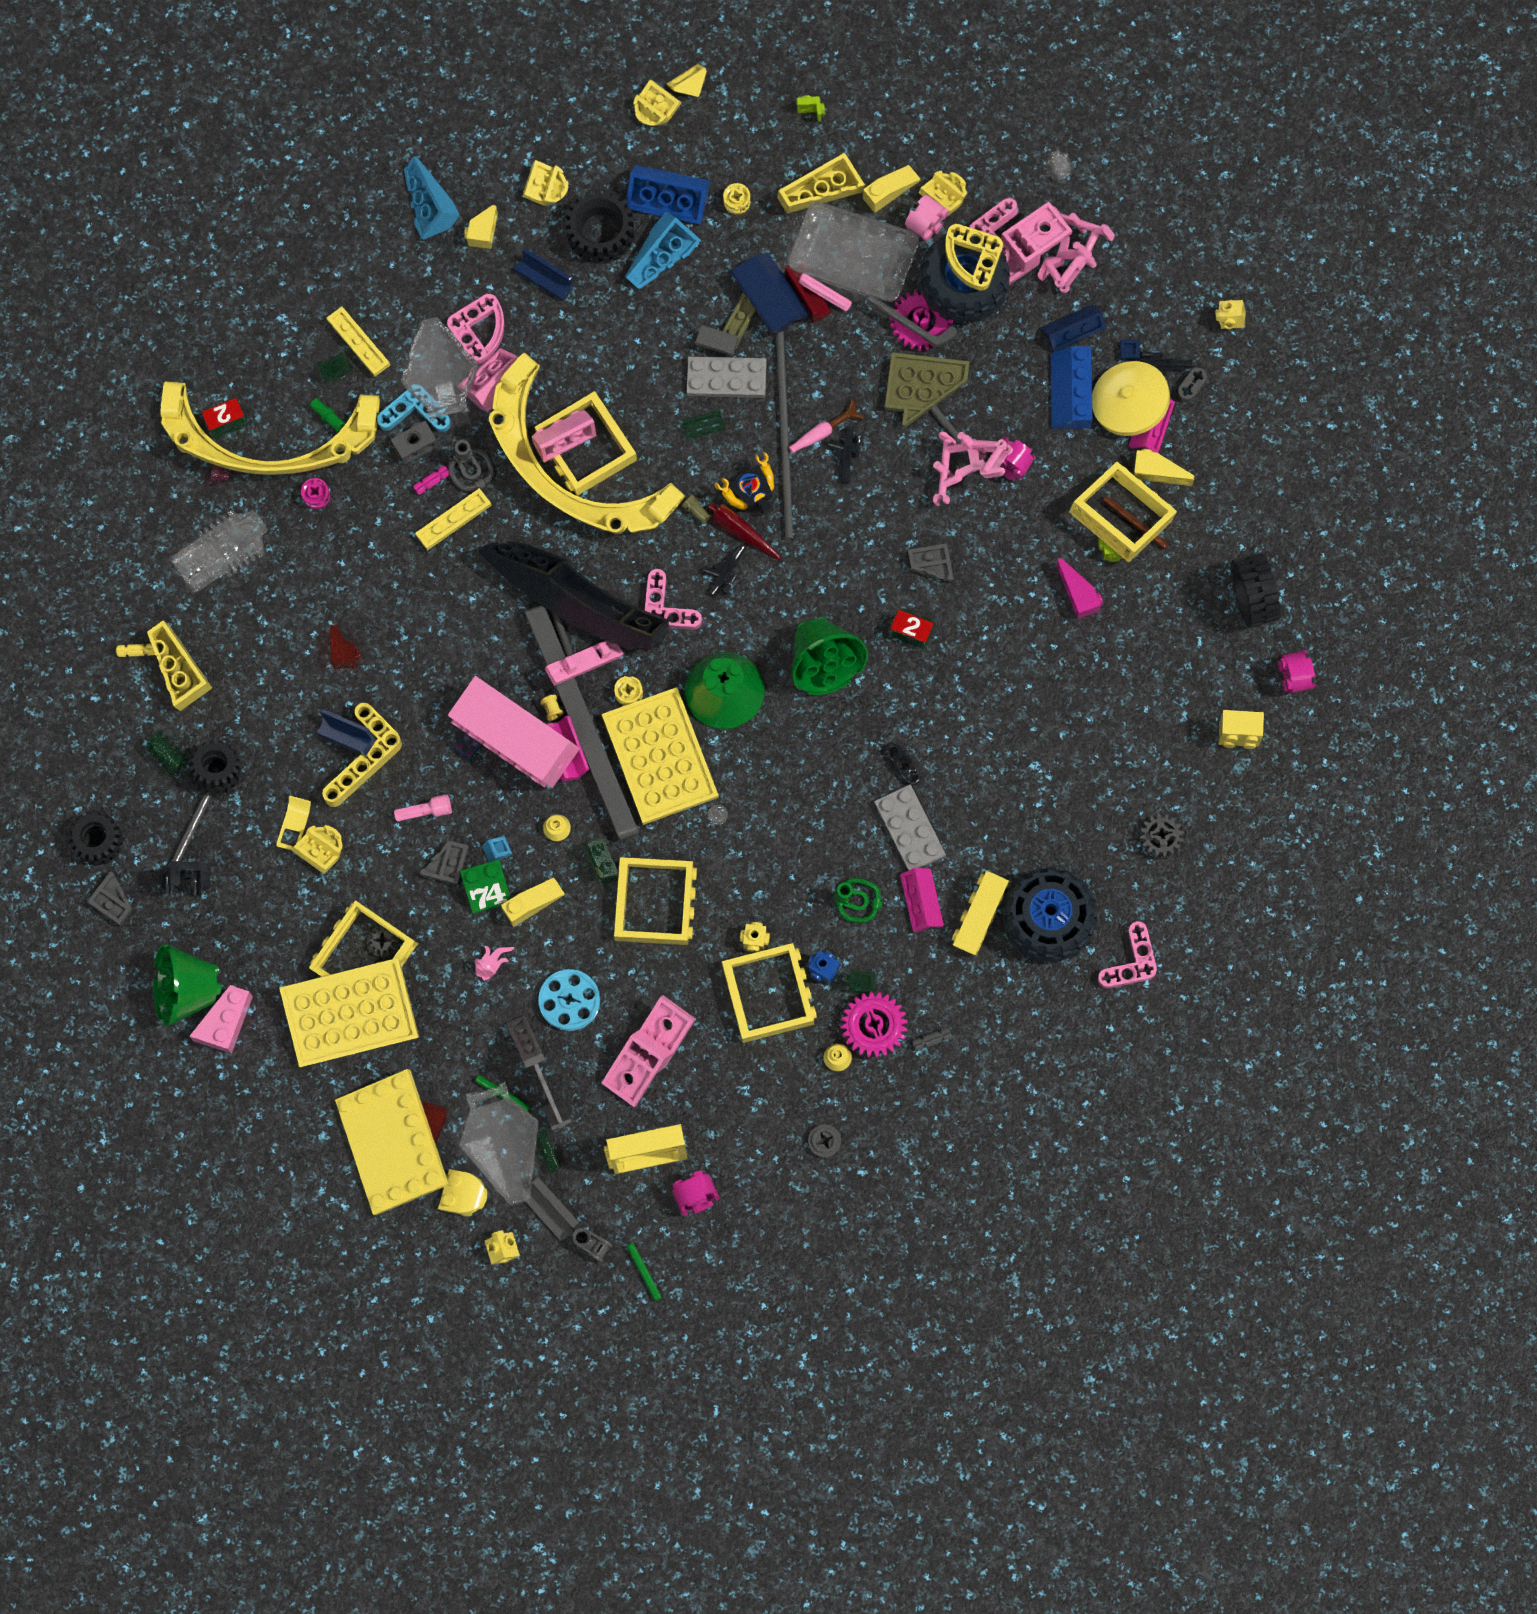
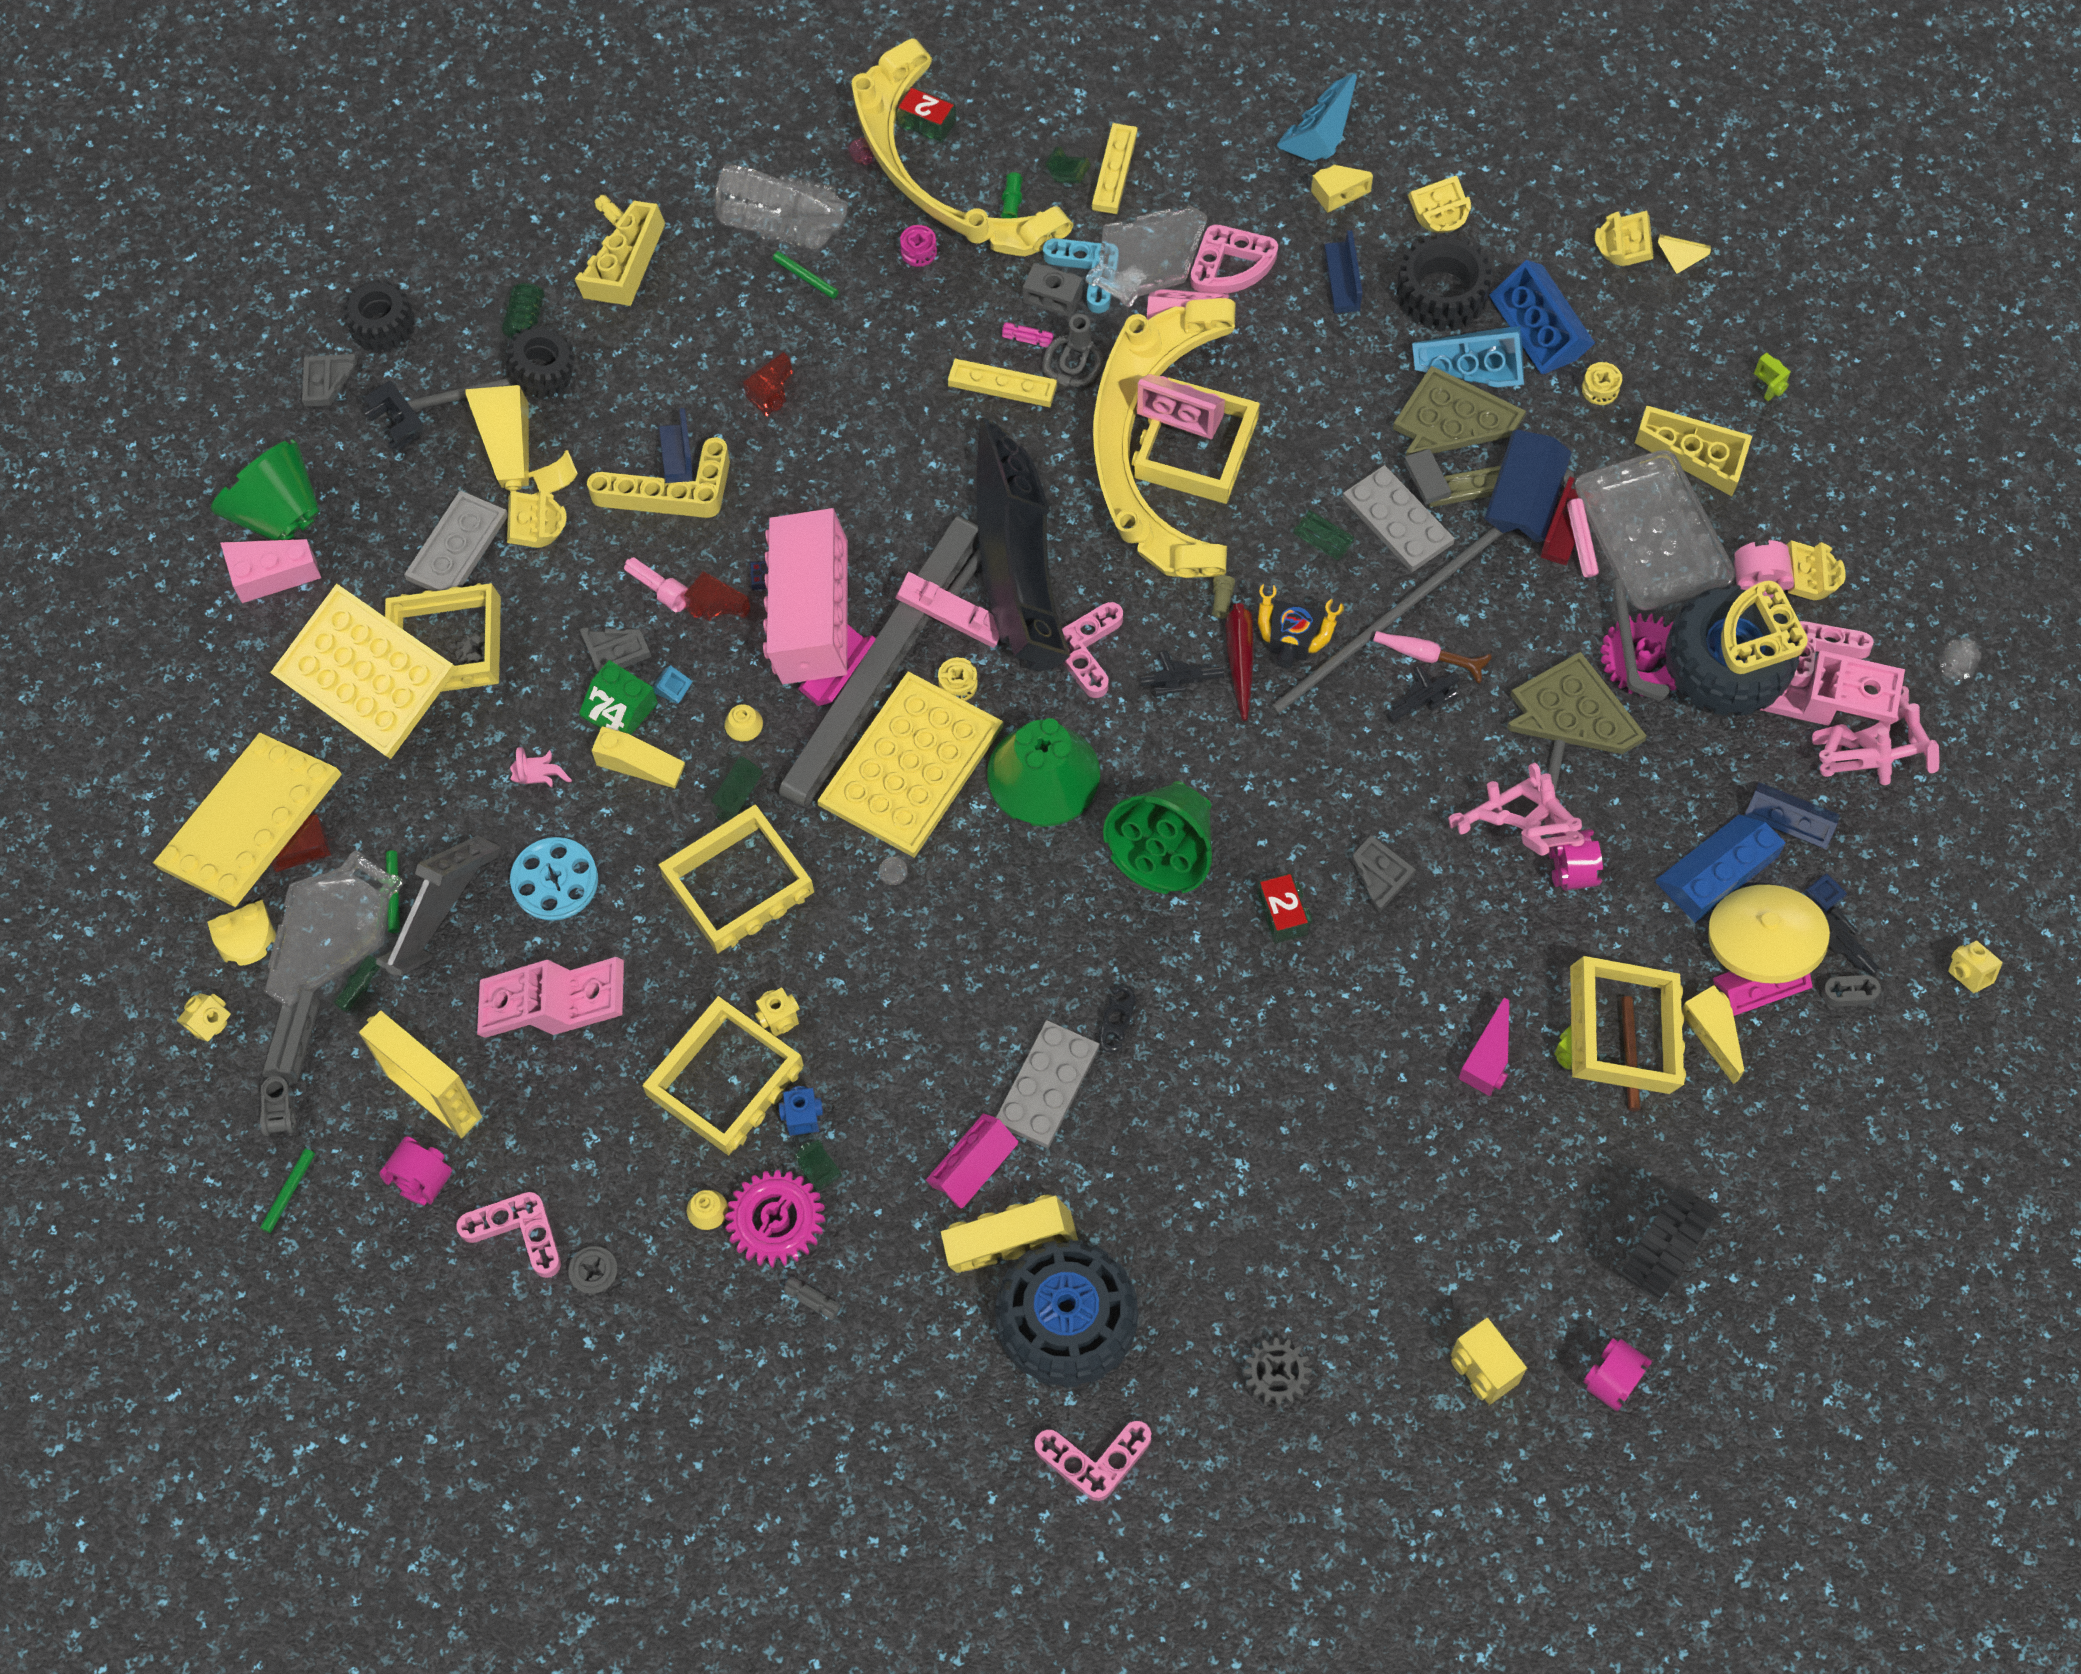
camera: 50 degrees right, 10 degrees down
(246, 822) = (504, 428): none -> light yellow slope
(277, 572) = (805, 275): none -> green bar
(299, 903) = (456, 543): none -> light grey plate
(461, 784) = (711, 598): none -> clear red arch
(552, 708) = (874, 619): light yellow bush -> none
(688, 293) = (1454, 414): none -> olive wing
(768, 1157) = (527, 1222): none -> bright pink beam
(844, 892) = (906, 1067): green piece -> none
(889, 187) = (1760, 513): light yellow slope -> none

